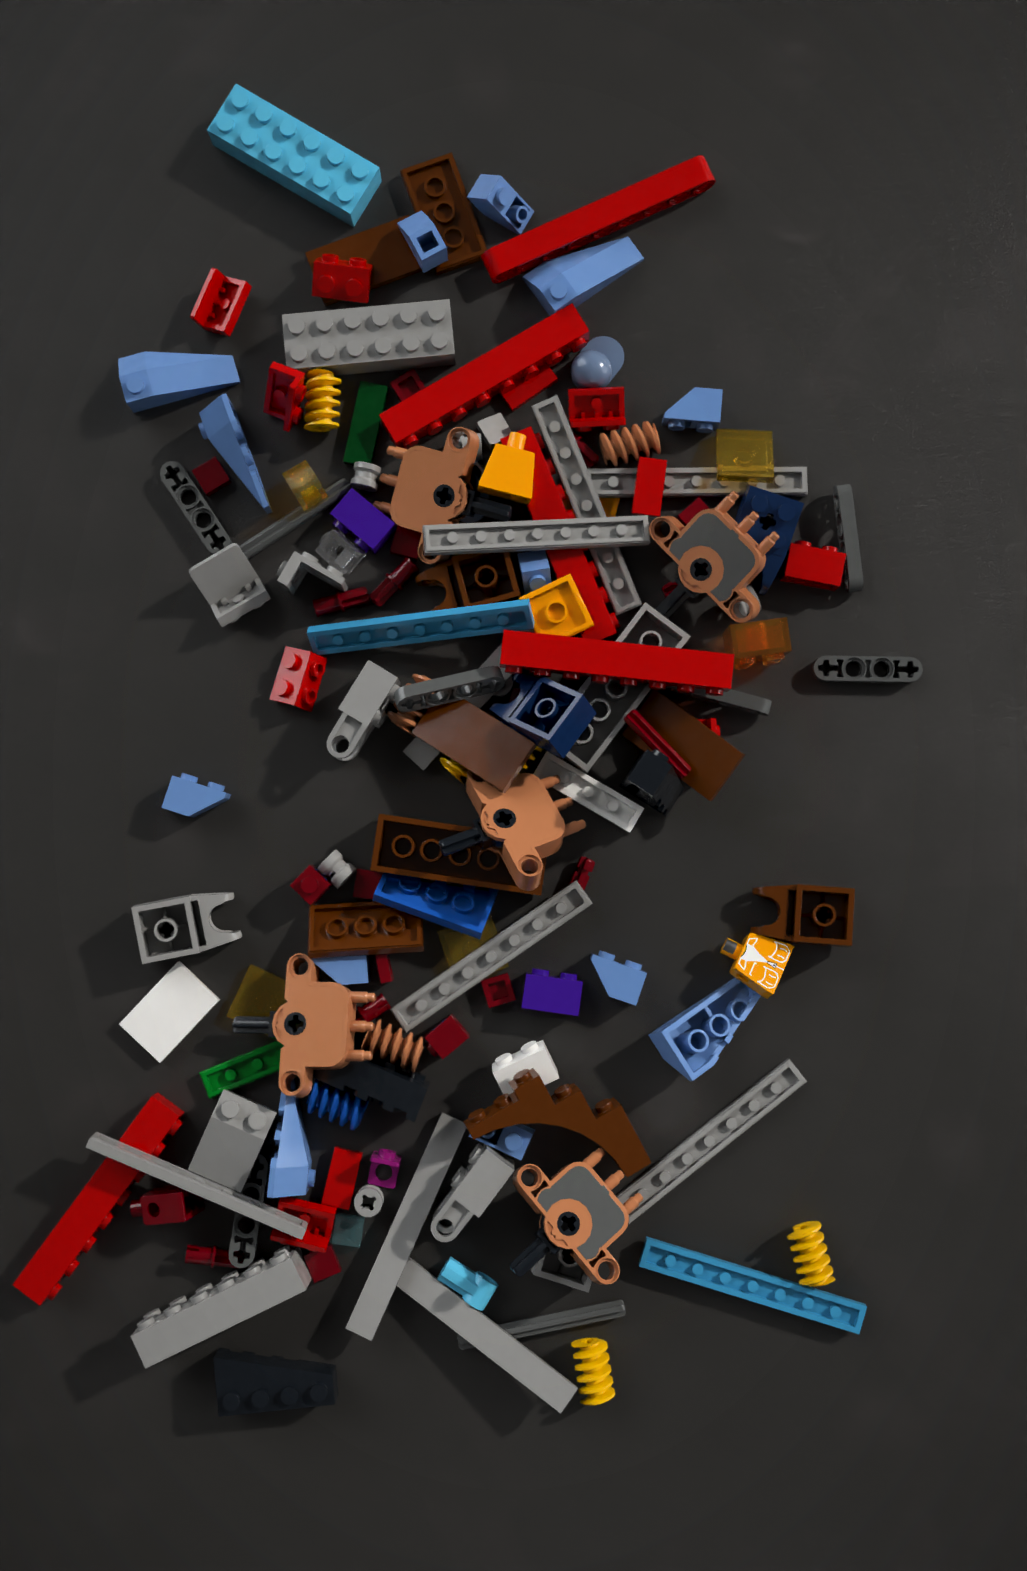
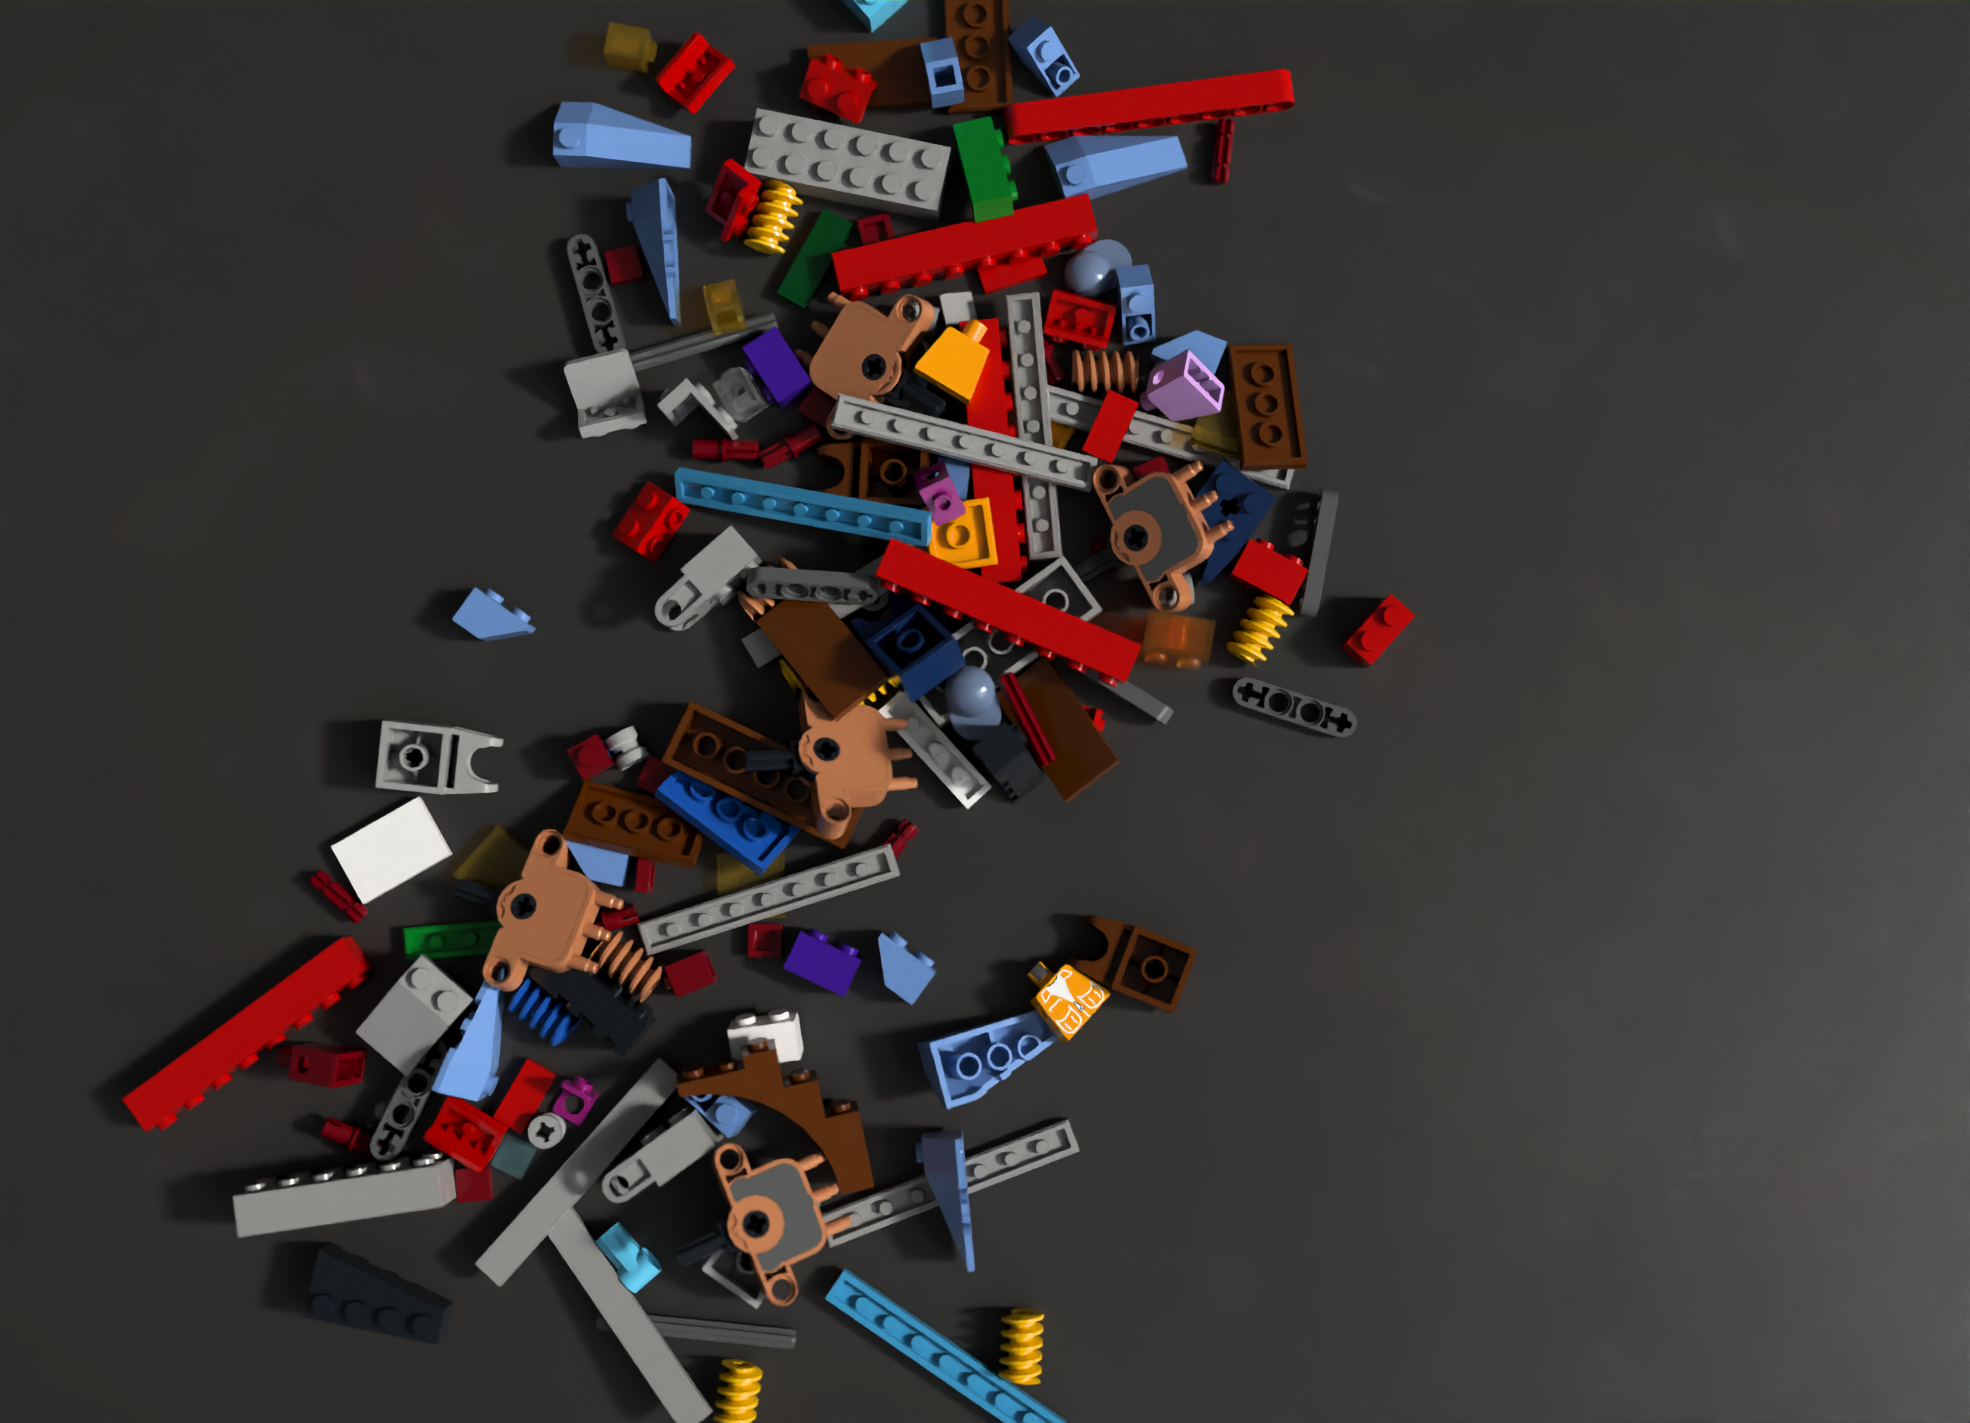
camera: 25 degrees right, 0 degrees up
(137, 1063) = (338, 896): none -> dark red axle
(160, 297) = (629, 47): none -> clear yellow brick
(197, 1185) = (360, 1052): light grey tile -> none
(365, 476) = (796, 318): light grey wheel -> none
(482, 308) = (985, 169): none -> green brick
(530, 582) = (939, 494): none -> magenta bracket
(610, 744) = (972, 702): none -> sand blue cap
(638, 381) = (1136, 304): none -> medium blue slope
(668, 238) = (1222, 151): none -> dark red axle
(698, 438) = (1183, 389): none -> lavender torso
(707, 1131) = (946, 1172): none -> medium blue wedge
(770, 432) = (1266, 407): none -> reddish brown tile
(819, 614) = (1258, 629): none -> yellow piece
(916, 586) = (1377, 630): none -> red brick

